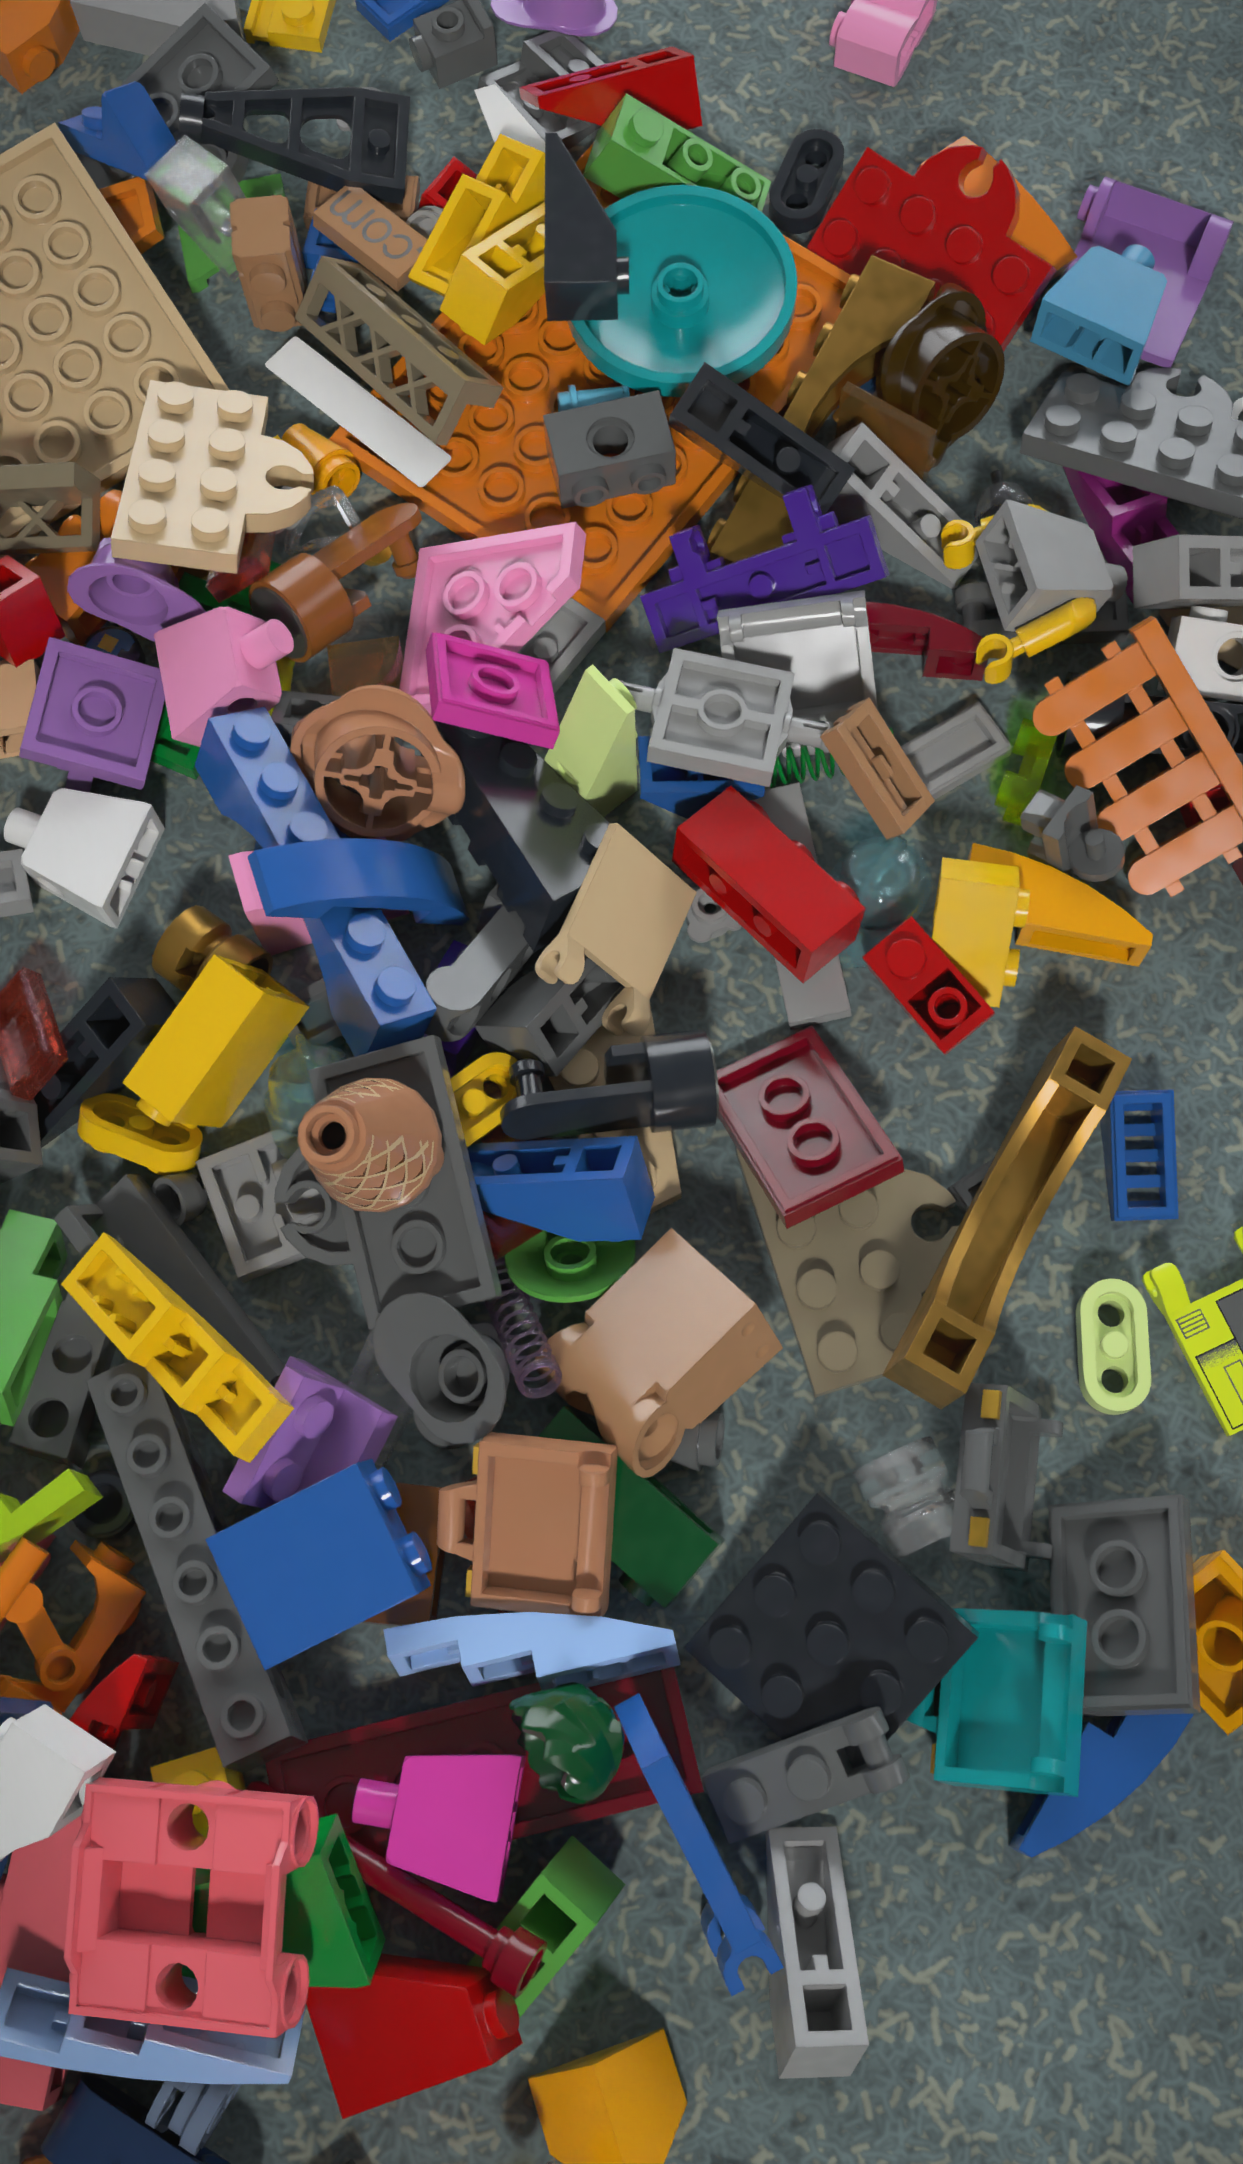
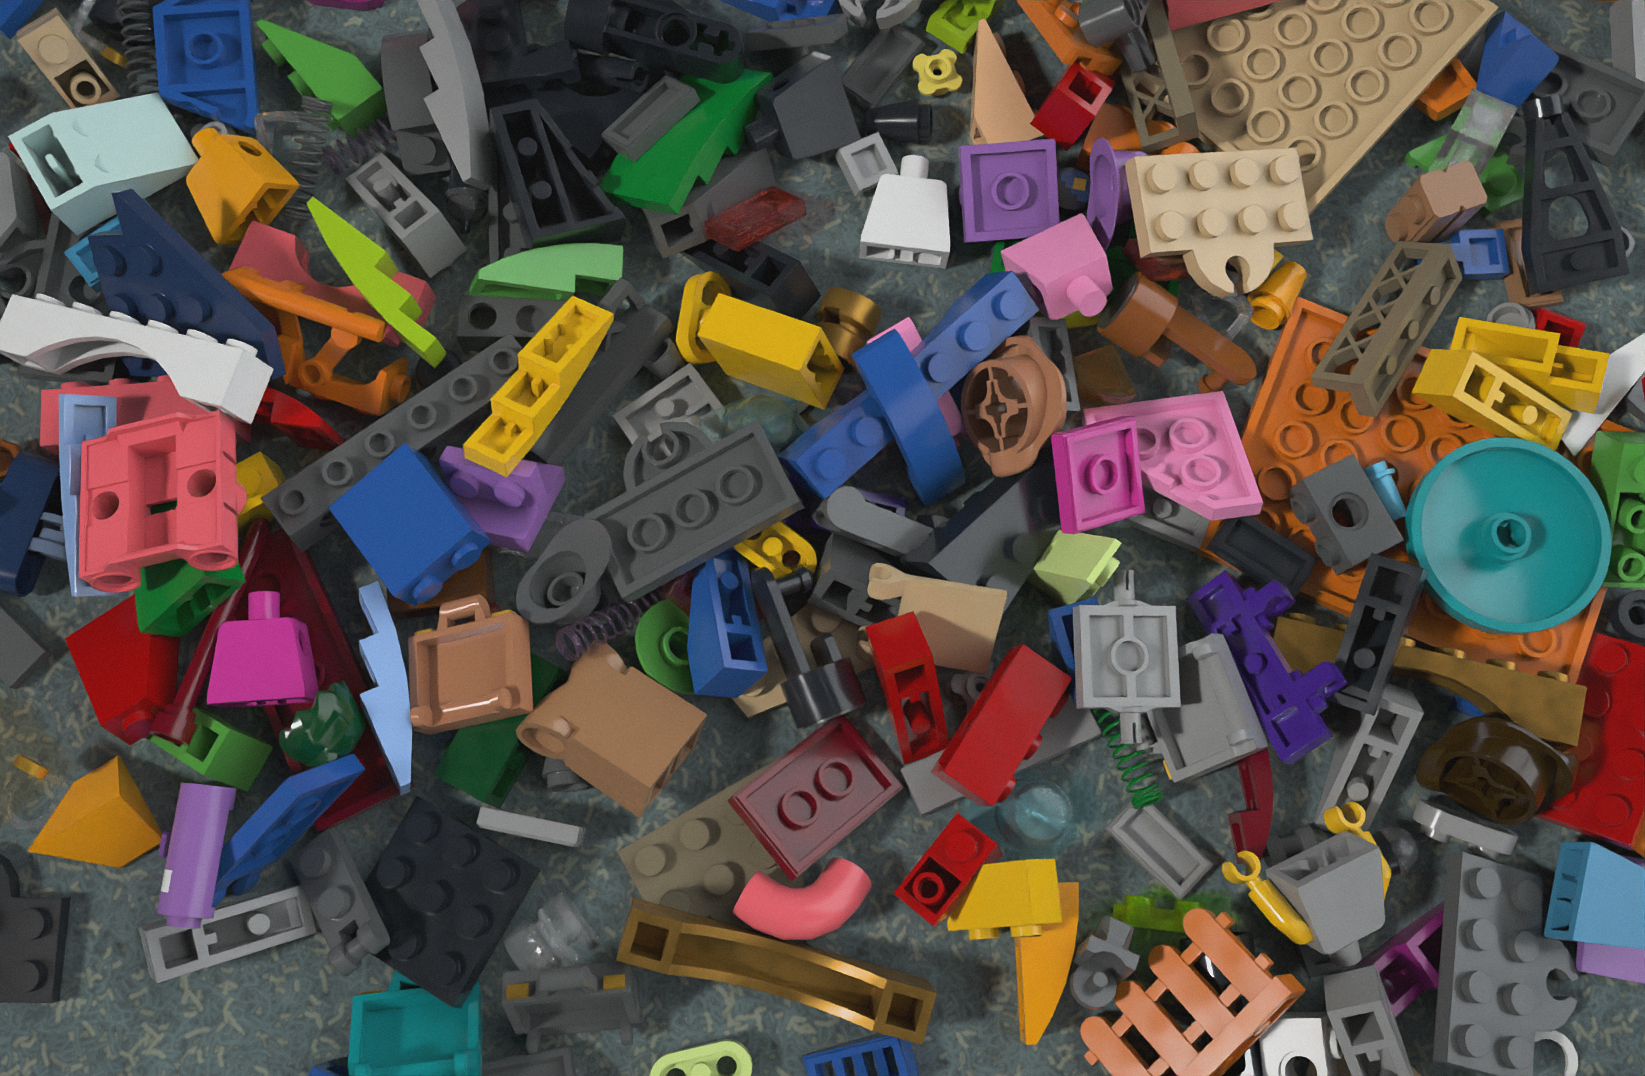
camera: 70 degrees right, 5 degrees up
(358, 411) = (1327, 310): white sticker -> none
(370, 234) = (1489, 278): medium nougat tile -> none
(372, 1144) = (702, 475): nougat cone -> none
(580, 245) = (1501, 445): black slope -> none
(630, 552) = (1262, 553): none -> black tile
(691, 974) = (909, 686): none -> red slope
(700, 1960) = (194, 854): none -> medium lavender door
(761, 1496) = (531, 827): none -> light grey tile
(877, 769) = (1109, 789): medium nougat tile -> none
(900, 432) = (1428, 740): clear orange piece -> none
(942, 1169) = (807, 910): none -> coral cylinder
(1006, 417) = (1483, 836): none -> light grey plate

